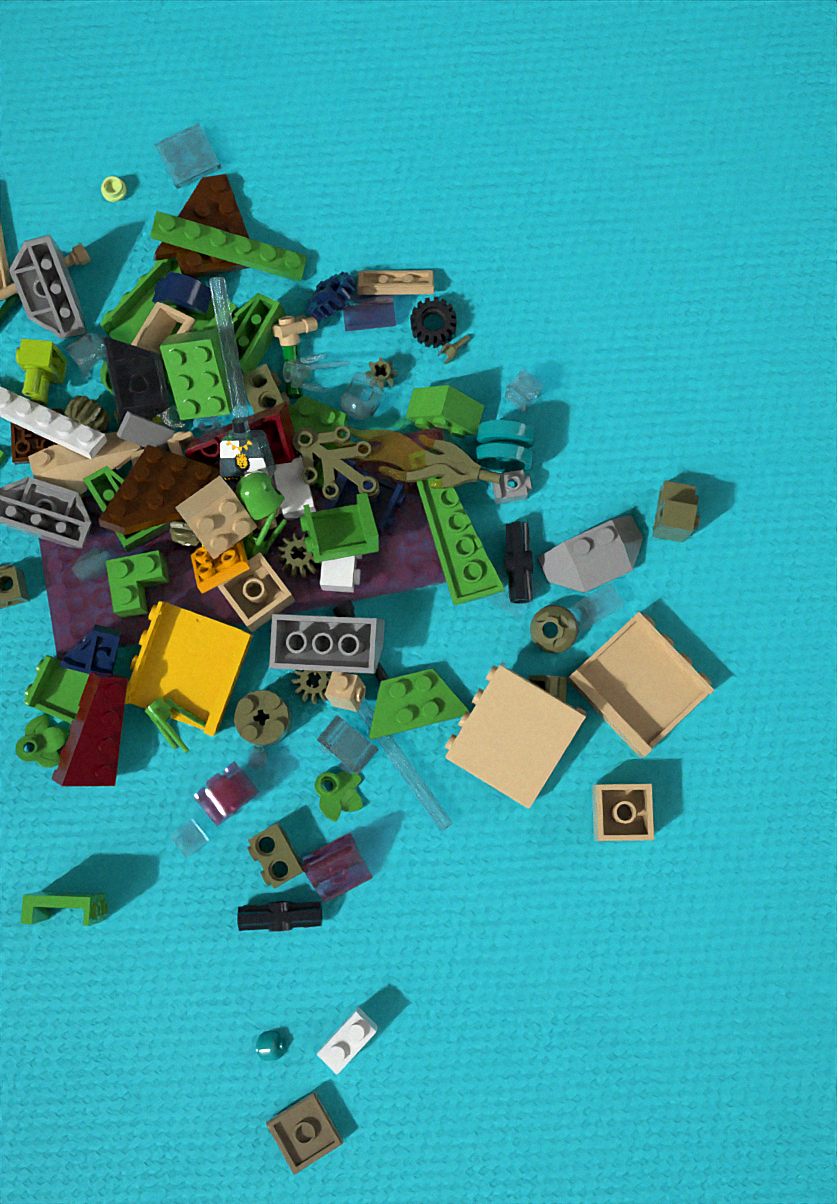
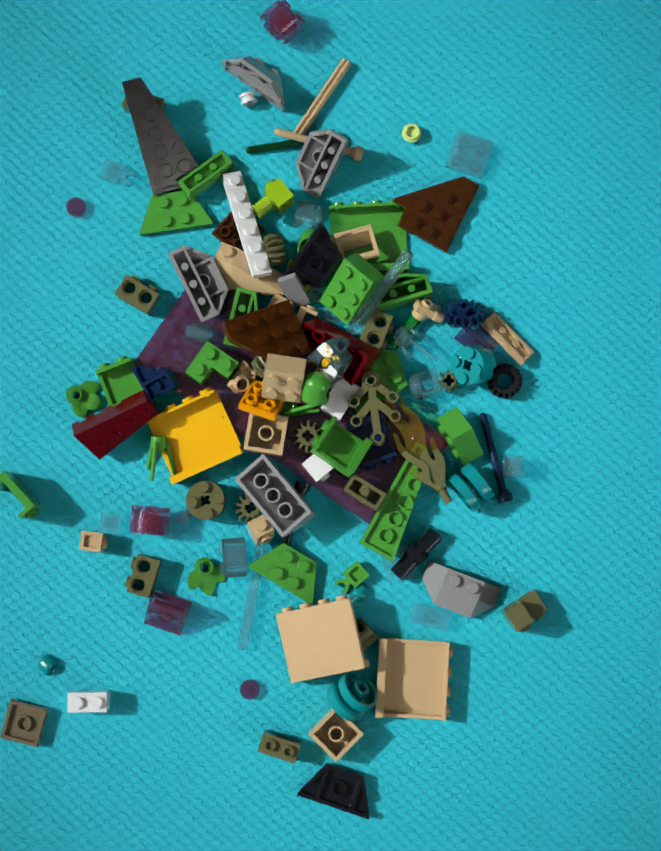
camera: 40 degrees right, 5 degrees up
(178, 564) = (242, 378): none -> tan plate
(183, 292) = (388, 232): dark blue brick -> none
(191, 874) = (93, 541): none -> tan bracket
(228, 246) = (437, 231): bright green plate -> none
(279, 916) = (116, 607): black piece -> none
(388, 332) = (473, 364): none -> teal brick
(409, 551) = (364, 492): none -> olive brick
(451, 349) = (499, 405): olive hand -> none
(481, 644) = (354, 575): none -> bright green plate
(495, 859) = (249, 689): none -> tile
(504, 653) = (360, 593): none -> teal piece
(506, 494) = (455, 518): light grey brick -> none
(541, 425) = (503, 493): none -> dark blue piece
(566, 625) = (407, 606): olive piece -> none
(582, 884) = (279, 746): none -> olive brick
(601, 758) = (352, 695): none -> teal wheel
(682, 866) = (338, 789): none -> black wing

